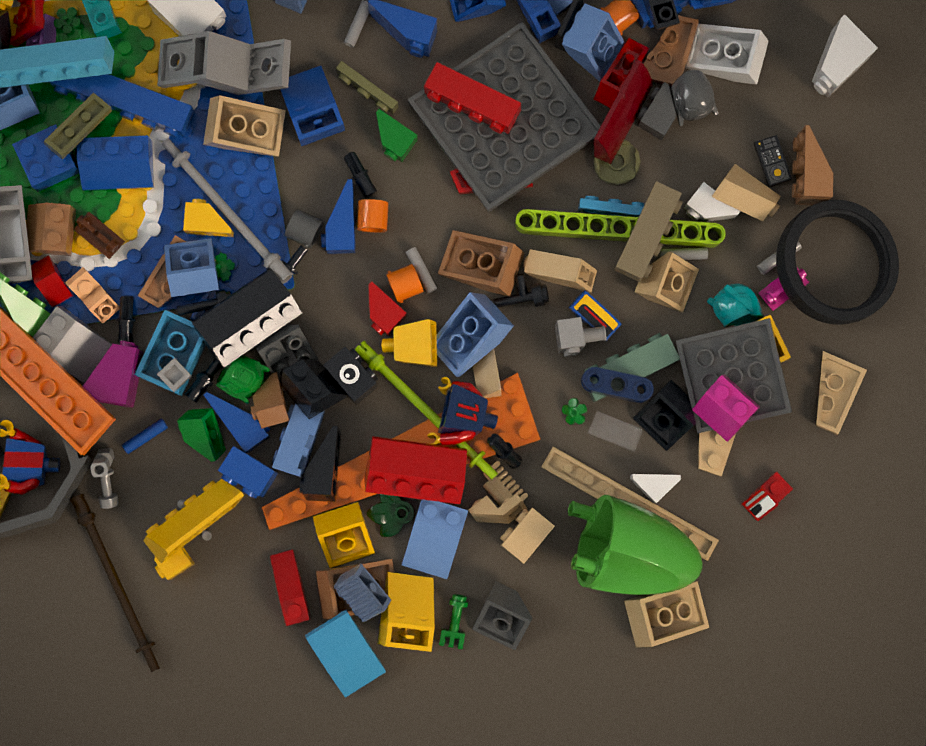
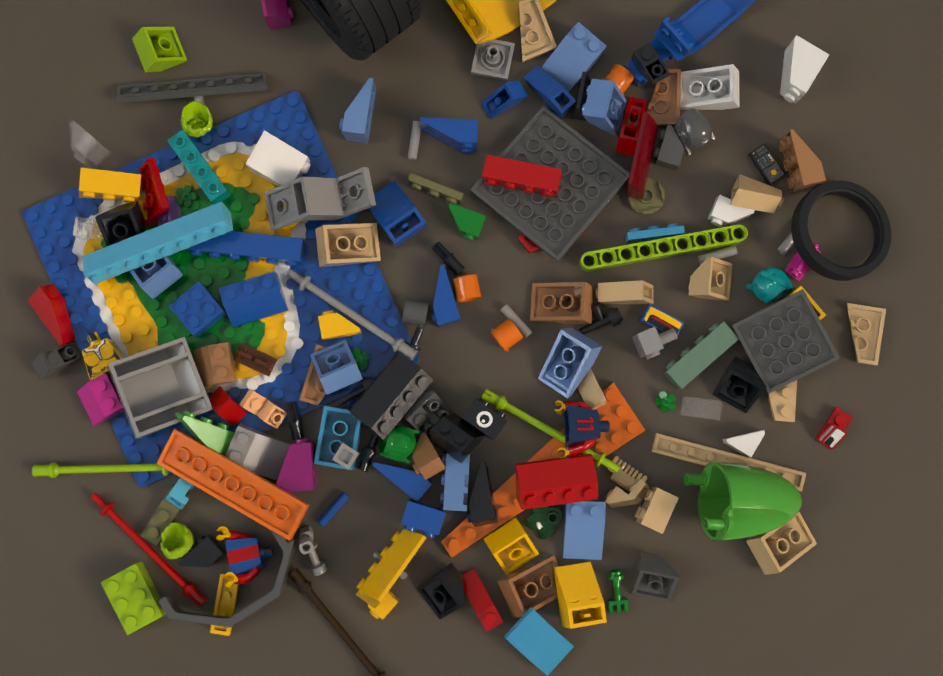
camera: 10 degrees left, 0 degrees up
(77, 126) = (217, 278): olive plate -> none
(202, 432) = (378, 495): green slope -> none
(249, 566) = (444, 591): none -> black slope
(362, 593) = (540, 590): sand blue brick -> none
(384, 311) = (495, 361): red slope -> none
(414, 343) = (526, 380): yellow torso -> none
(504, 451) = (621, 447): black axle -> none
(629, 381) = (705, 368): dark blue piece -> none
(647, 232) = (688, 245): dark tan brick -> none
(725, 407) = (787, 368): dark pink slope -> none

